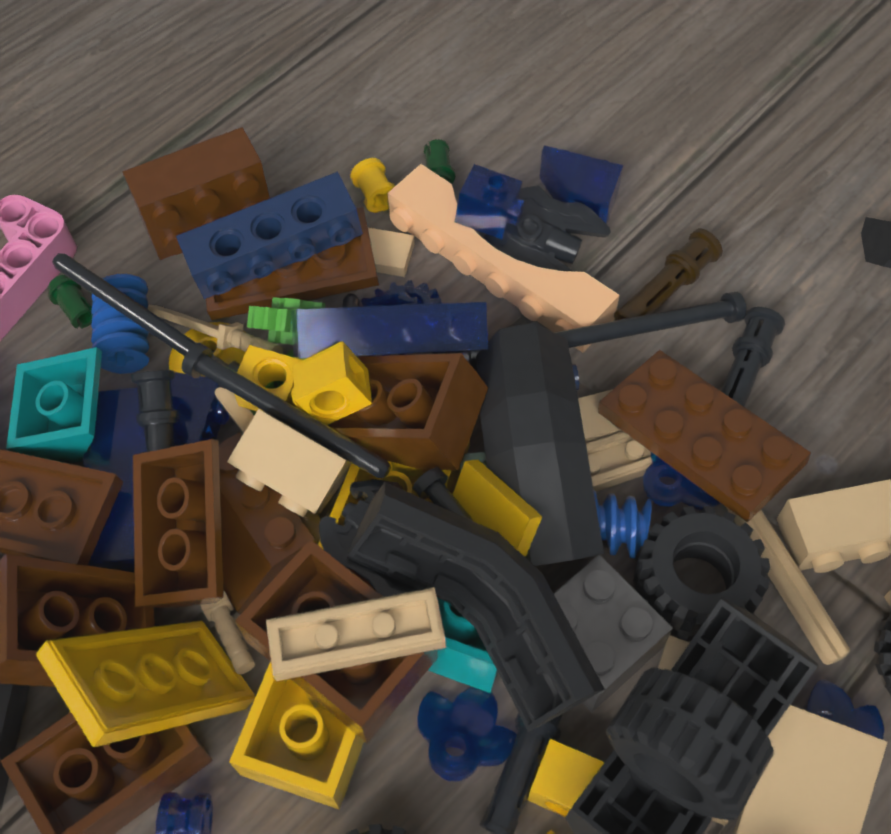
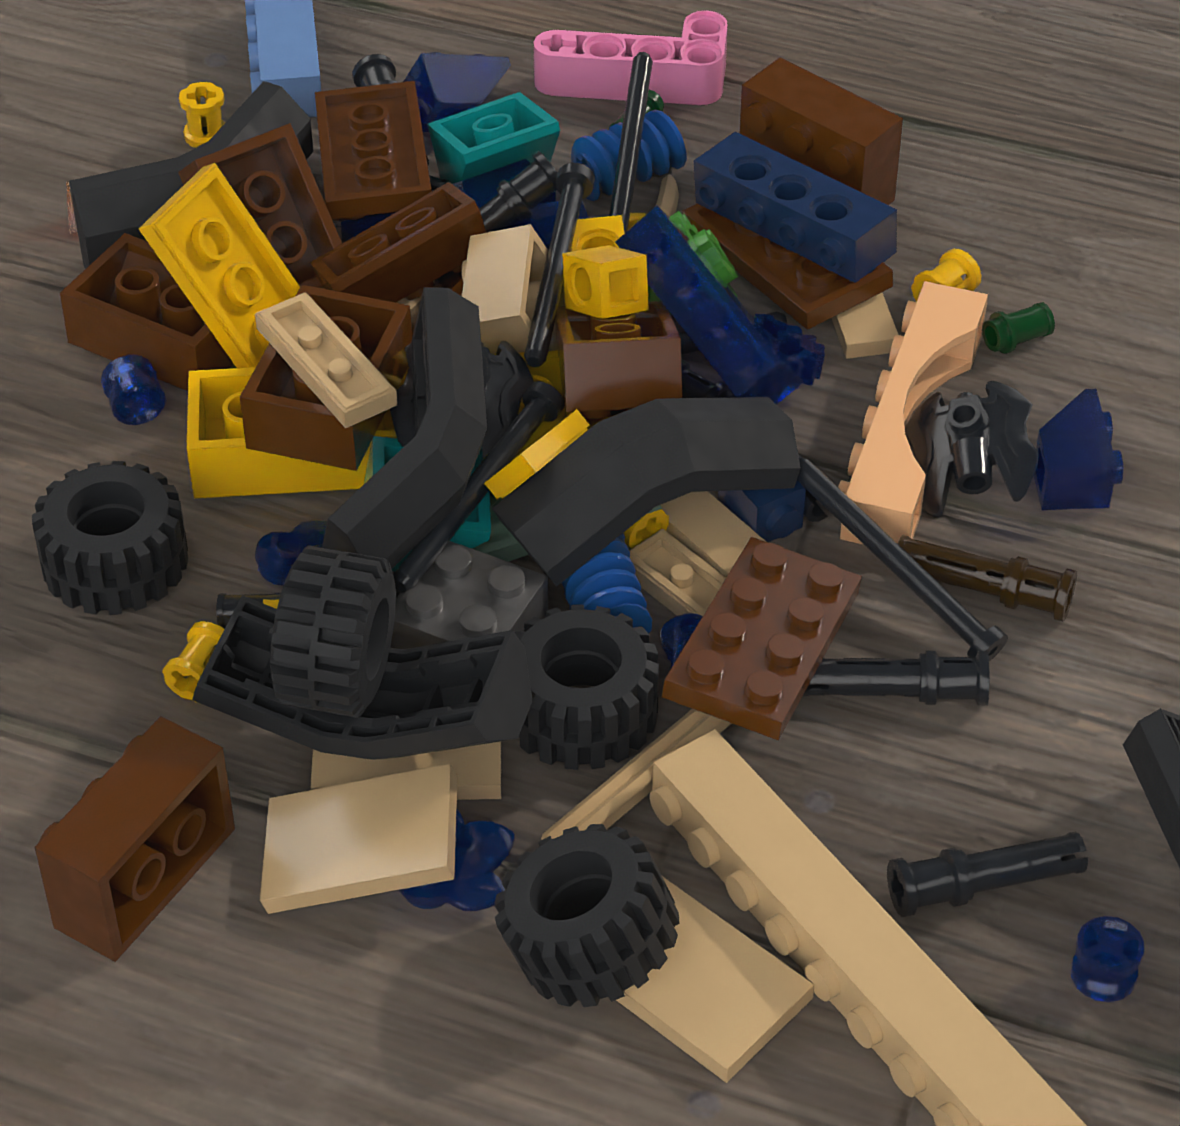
camera: 65 degrees right, 15 degrees down
(489, 202) = (956, 352): clear blue brick -> none

